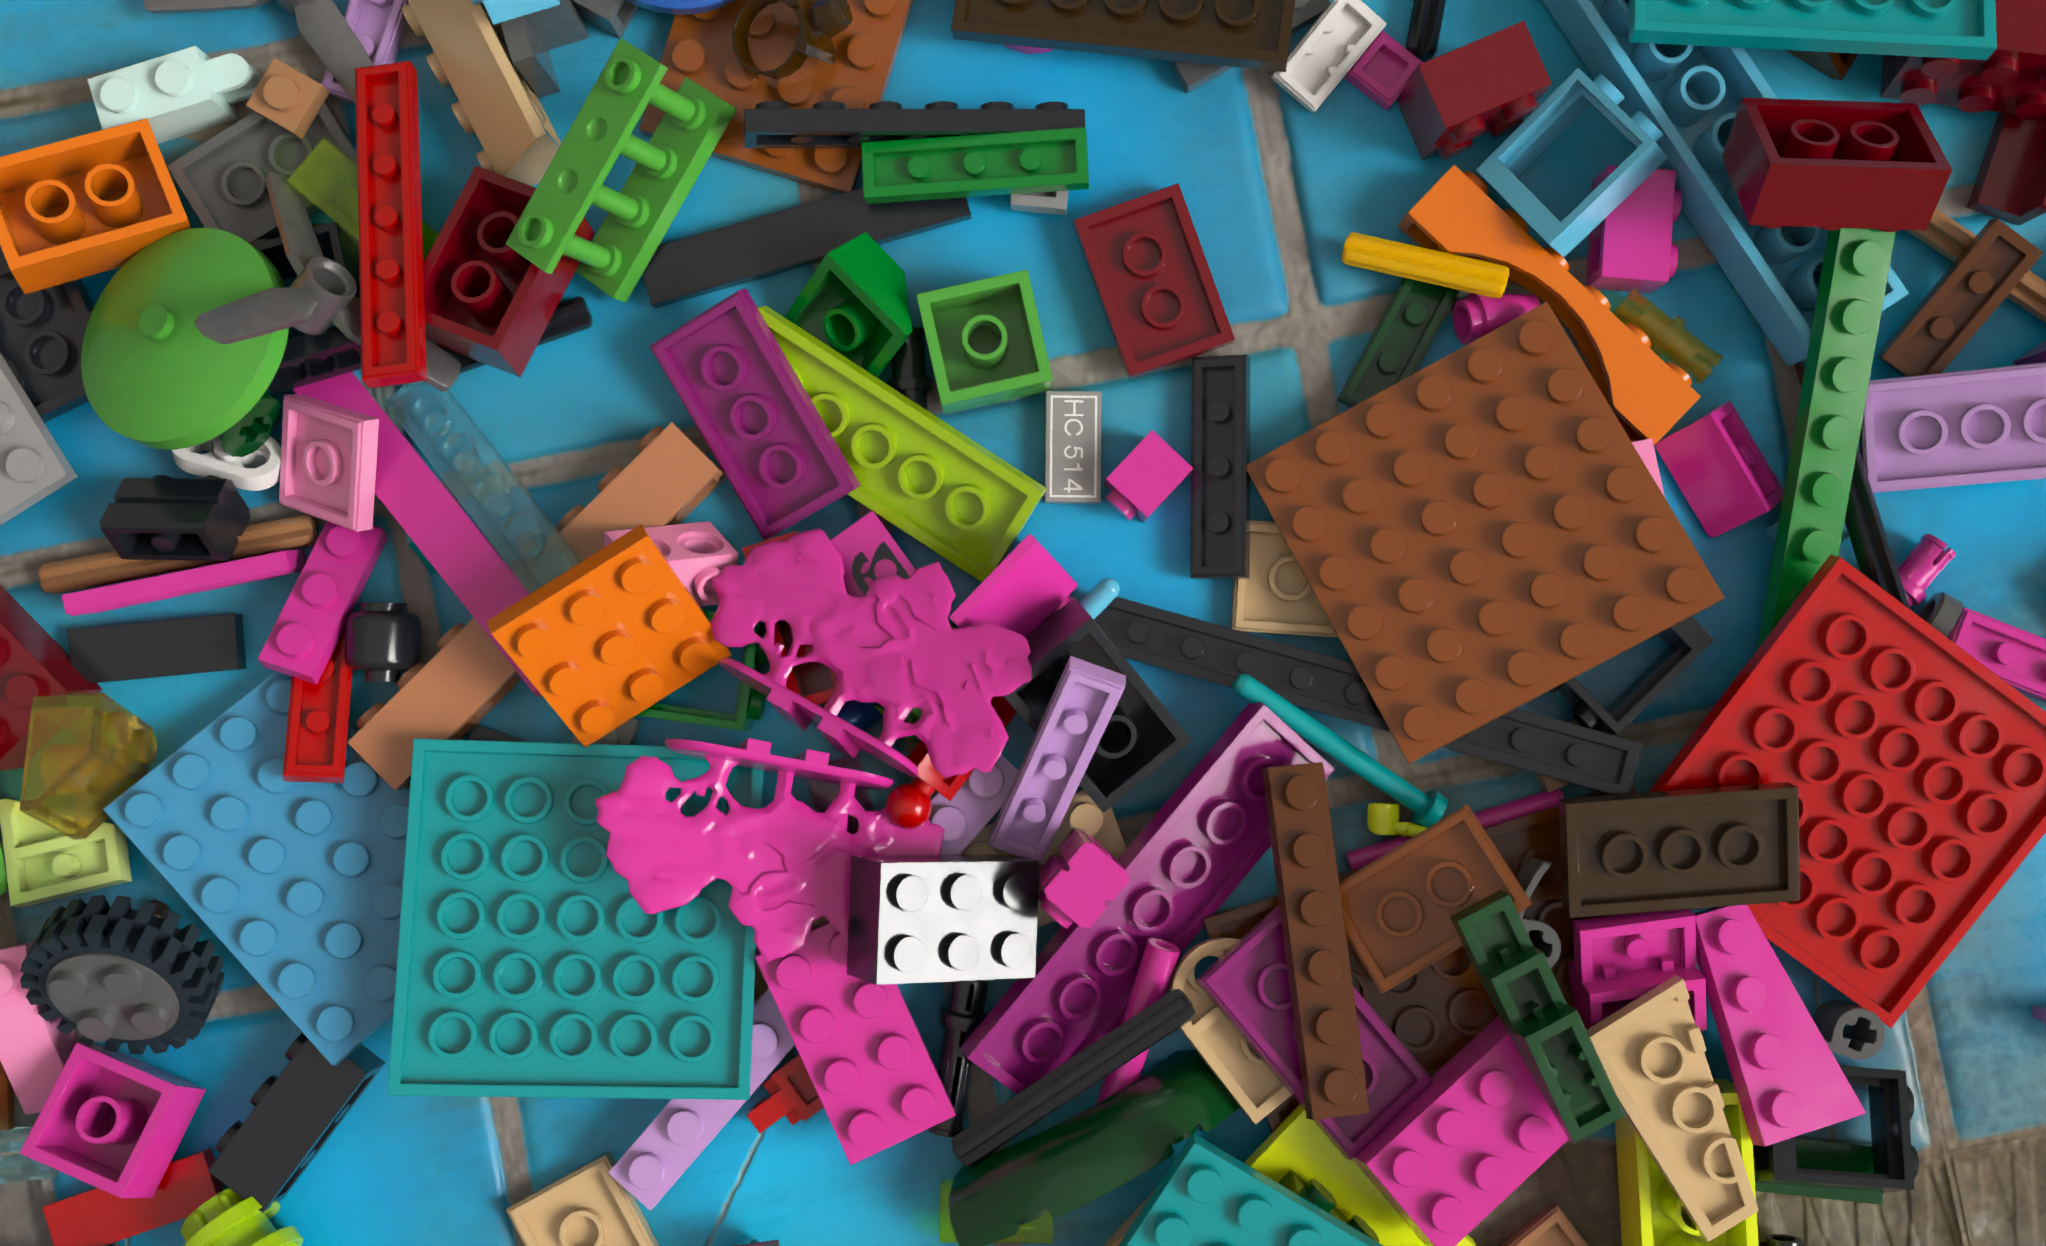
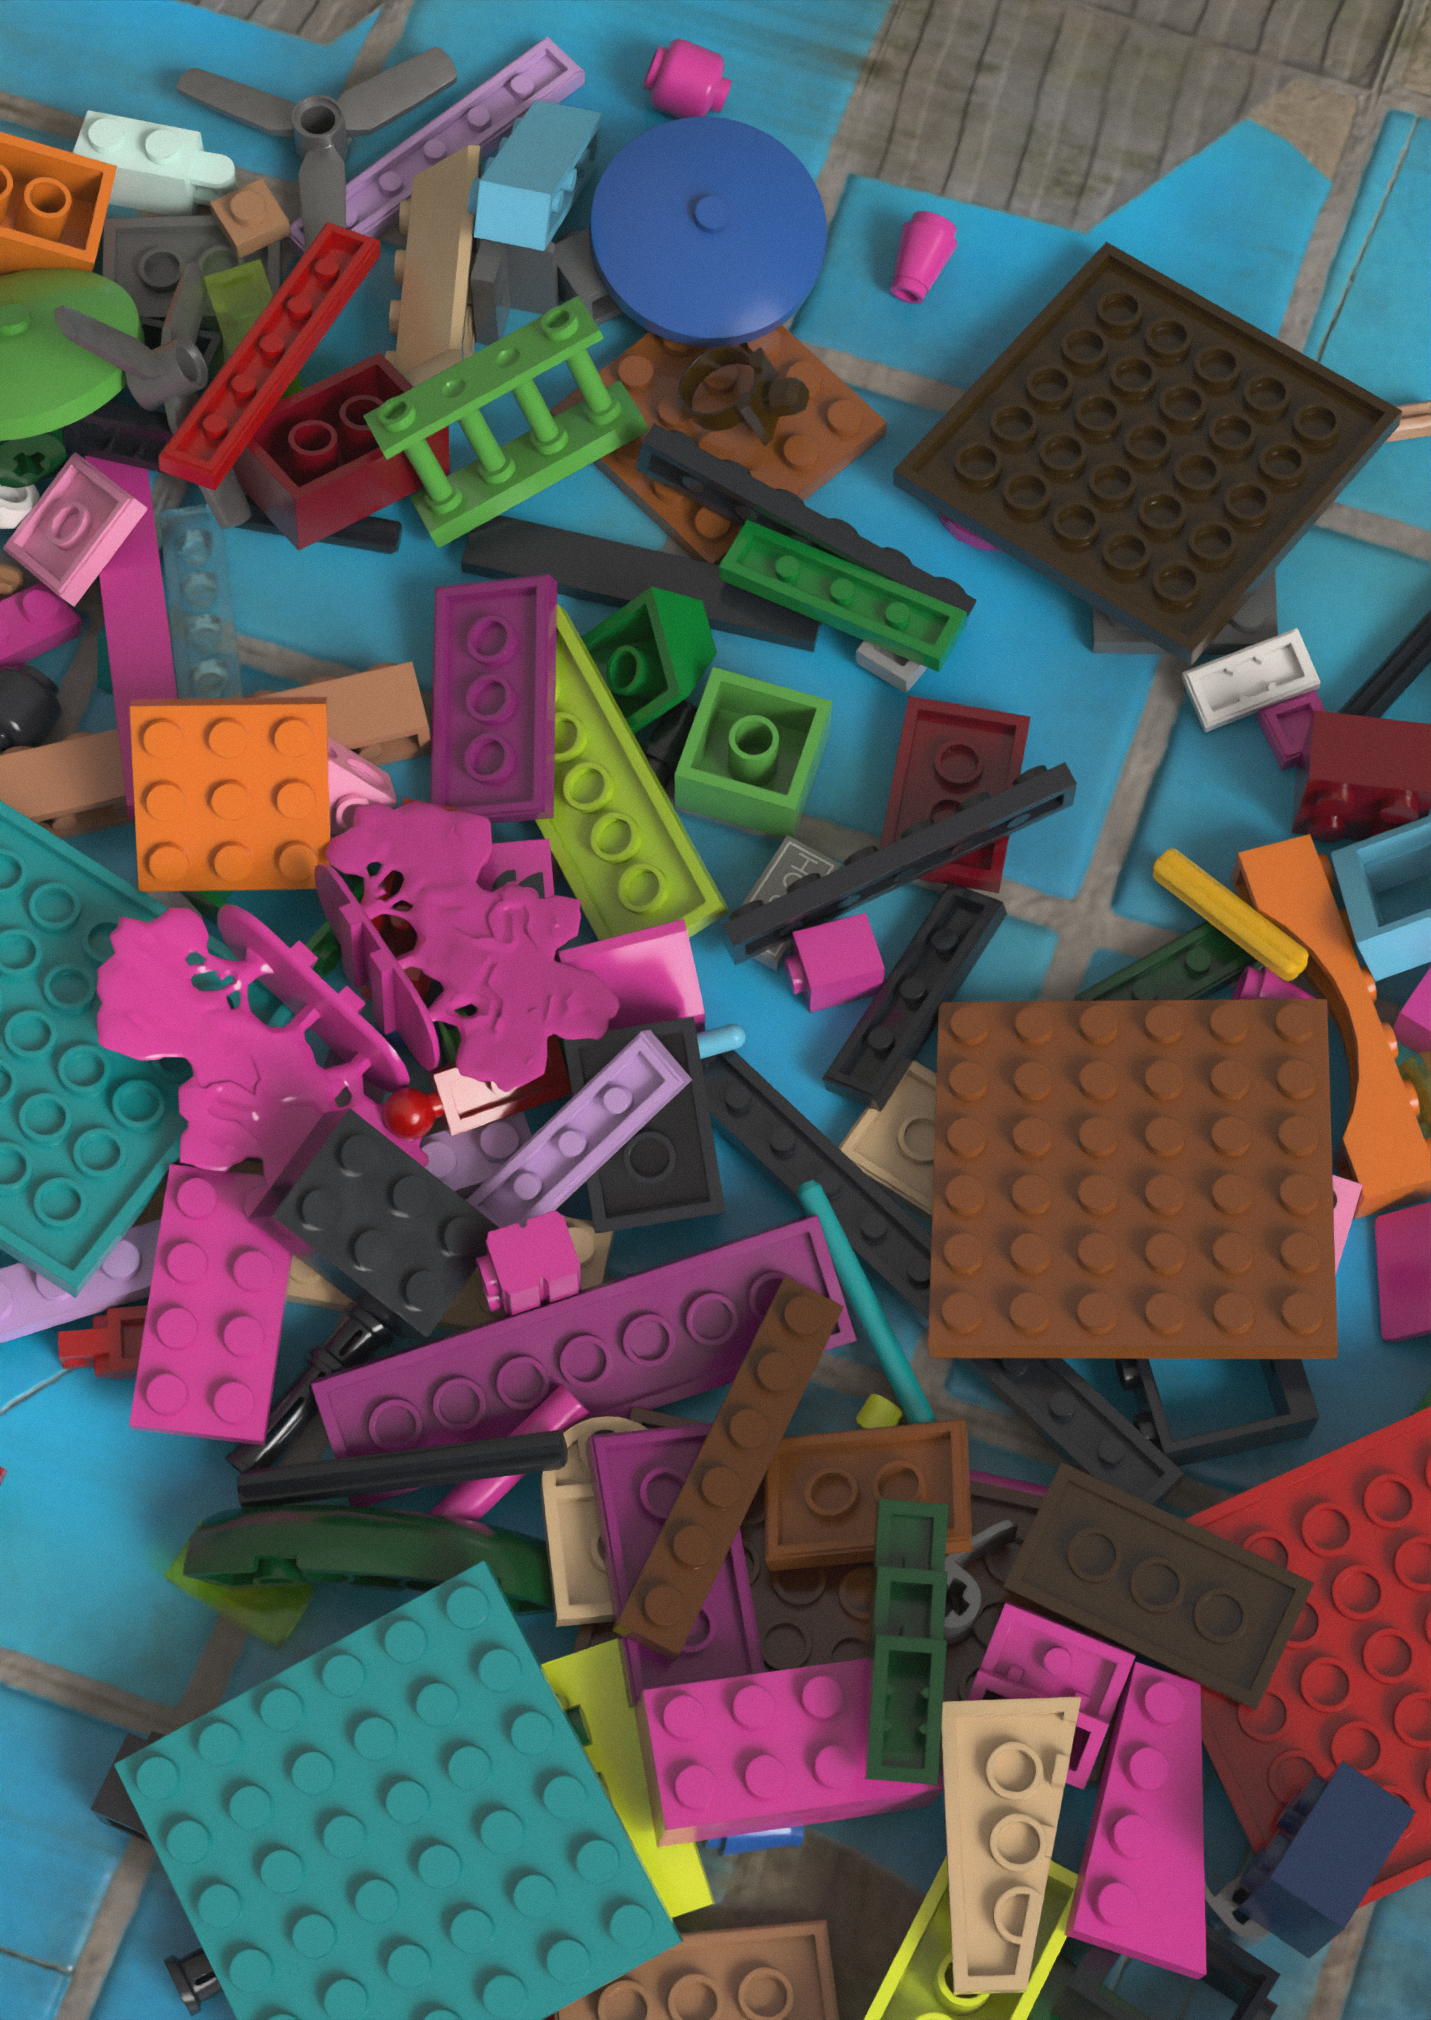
camera: 30 degrees right, 20 degrees down
(1166, 351) = (919, 852): none -> black plate
(1917, 991) = (1325, 1860): none -> dark blue brick

